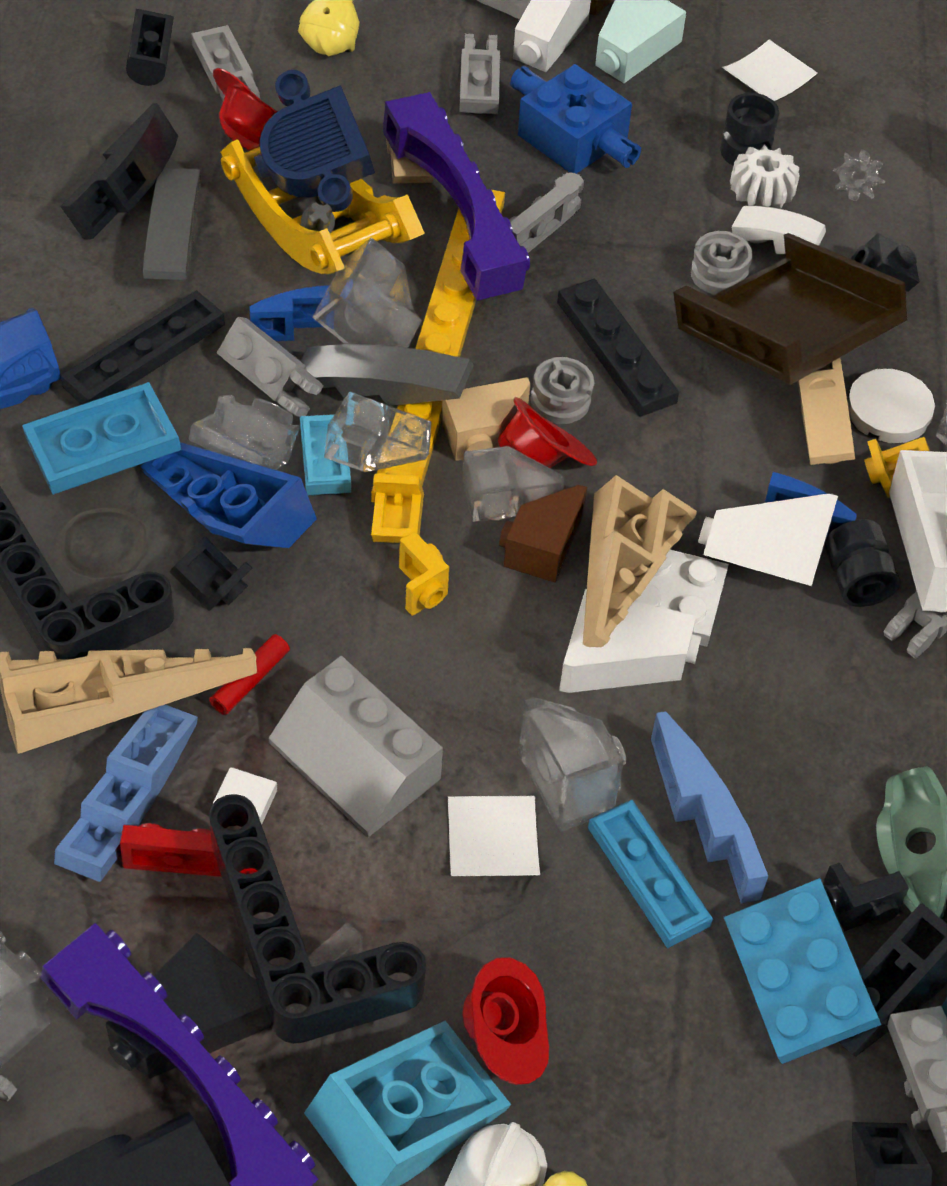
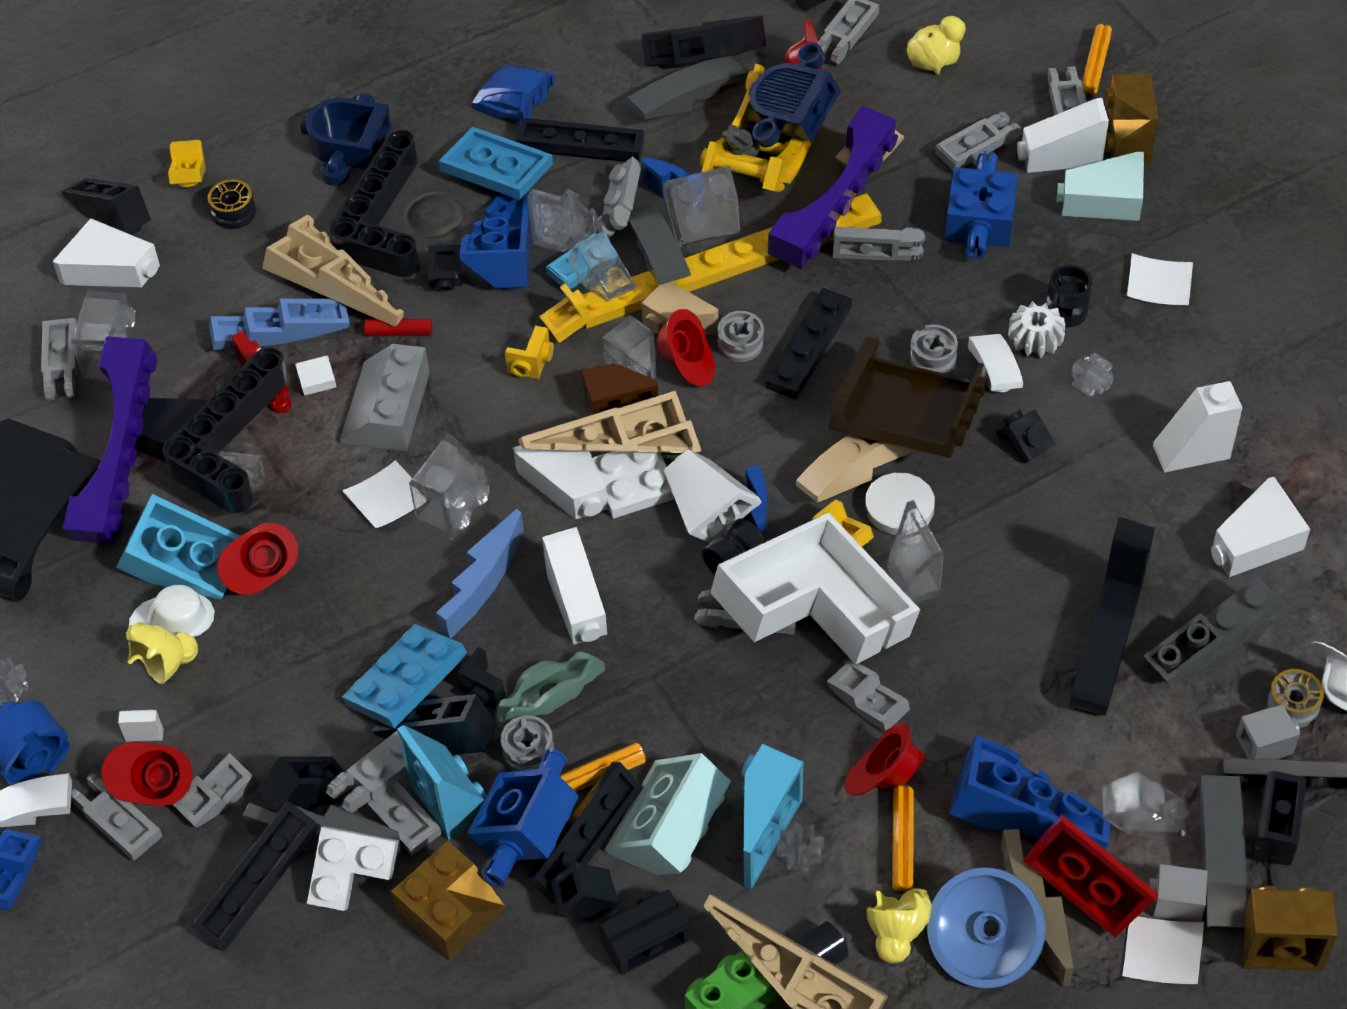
camera: 60 degrees right, 0 degrees up
(650, 873) = (420, 577): dark azure tile -> none
(809, 729) = (574, 586): none -> white slope

